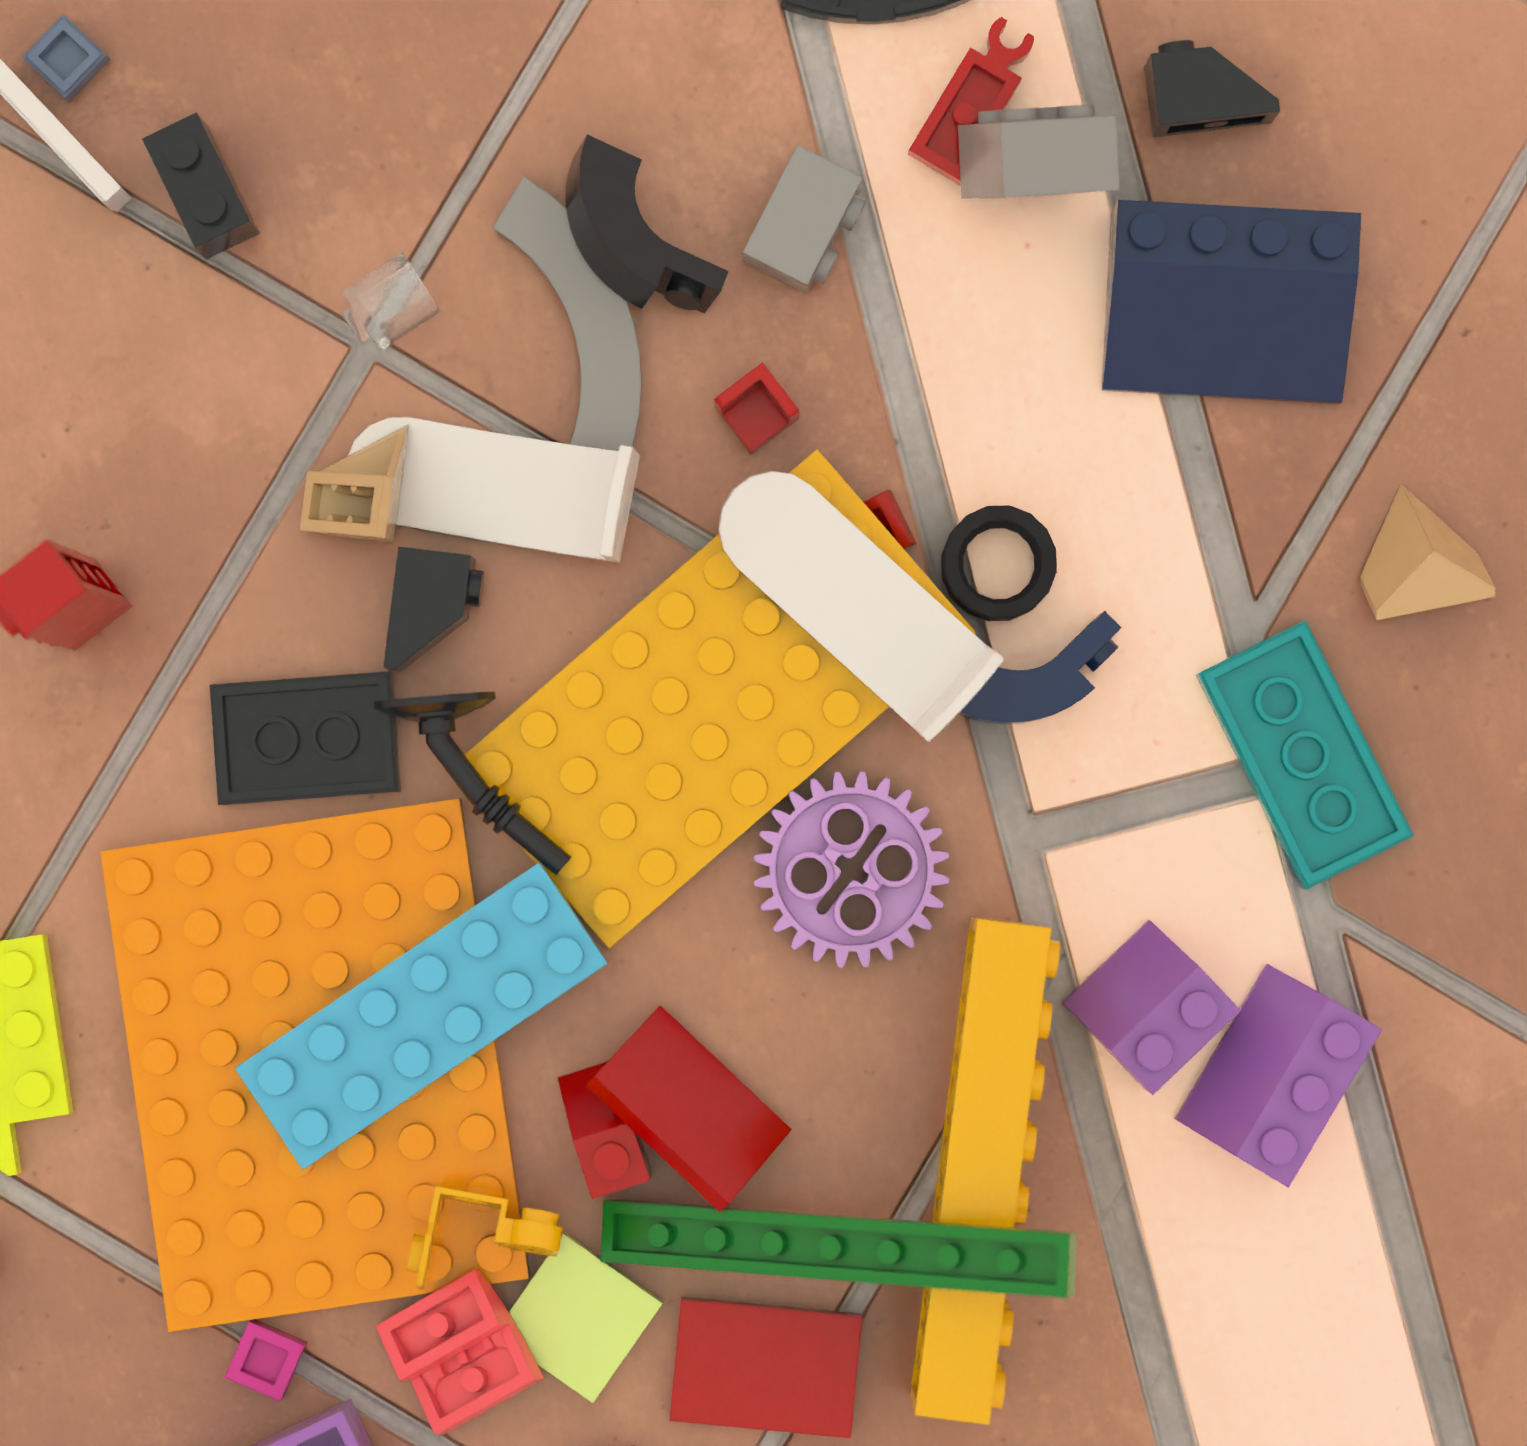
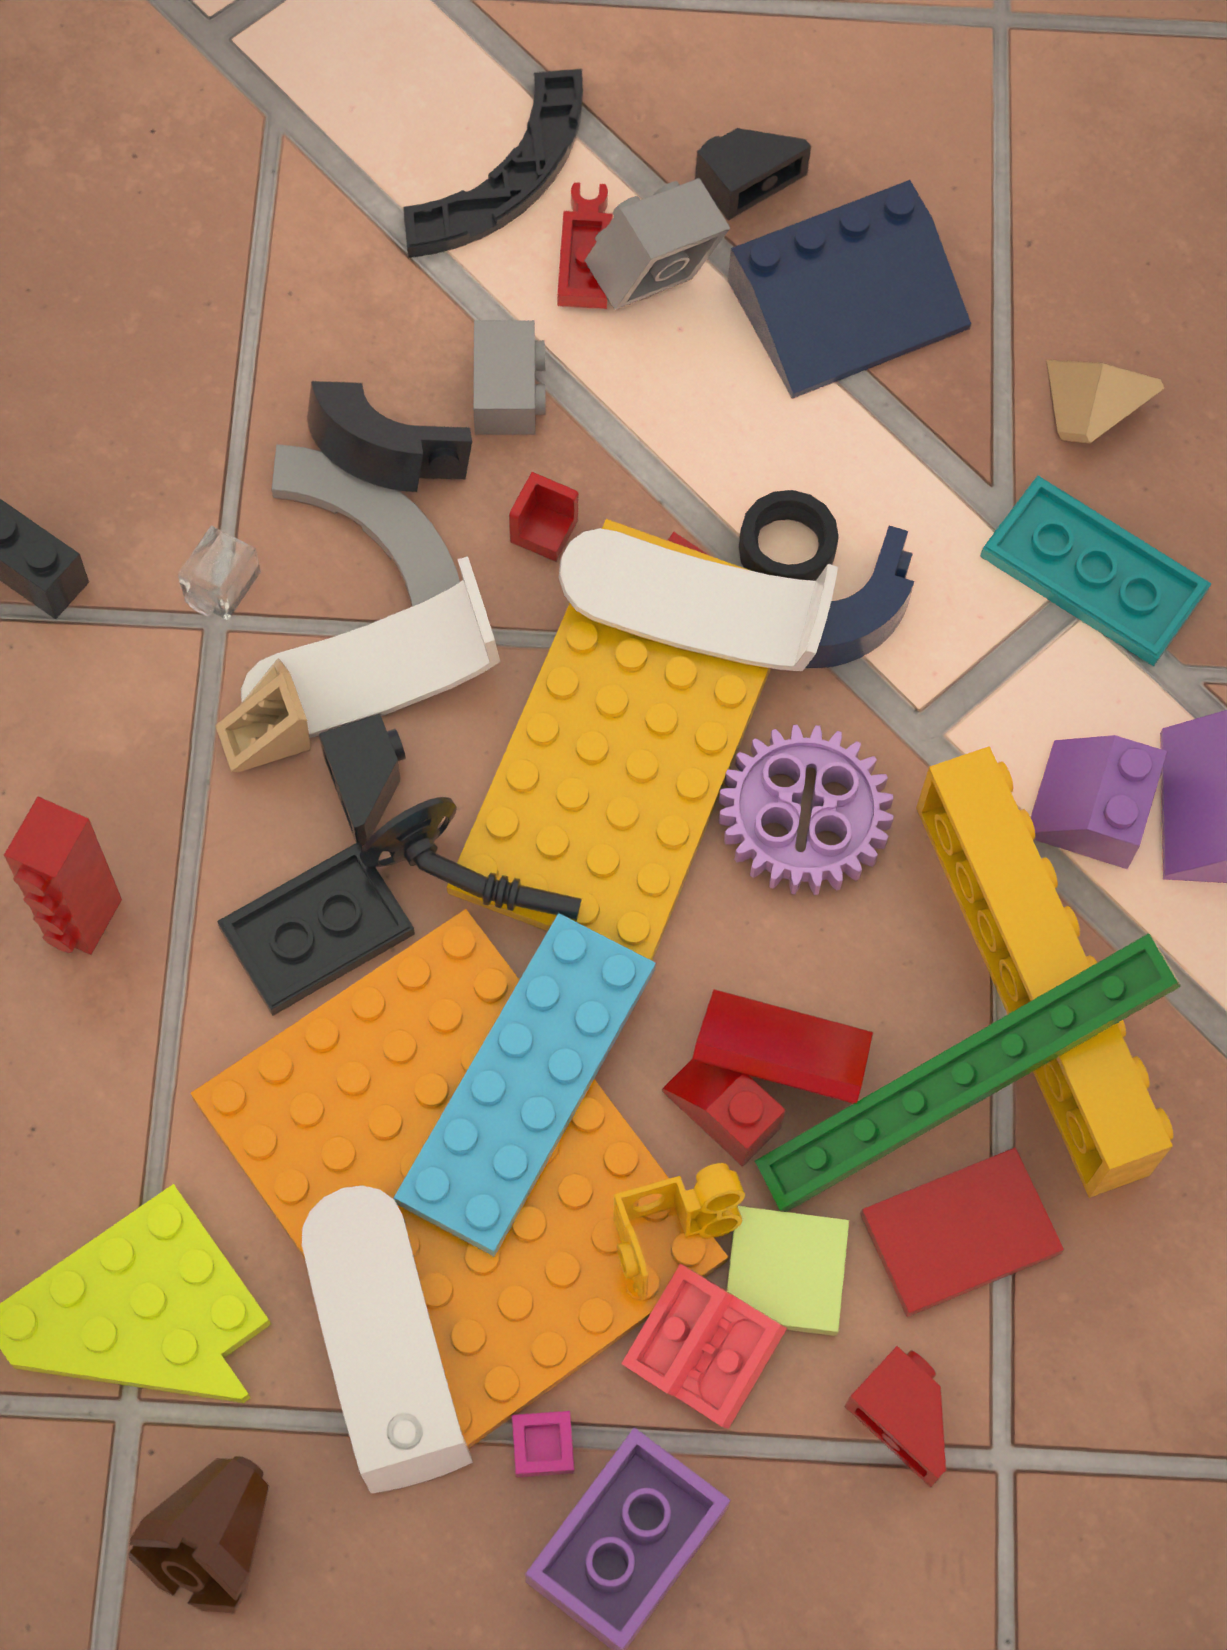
camera: 30 degrees left, 20 degrees down
(156, 1186) = (381, 1340): none -> white piece

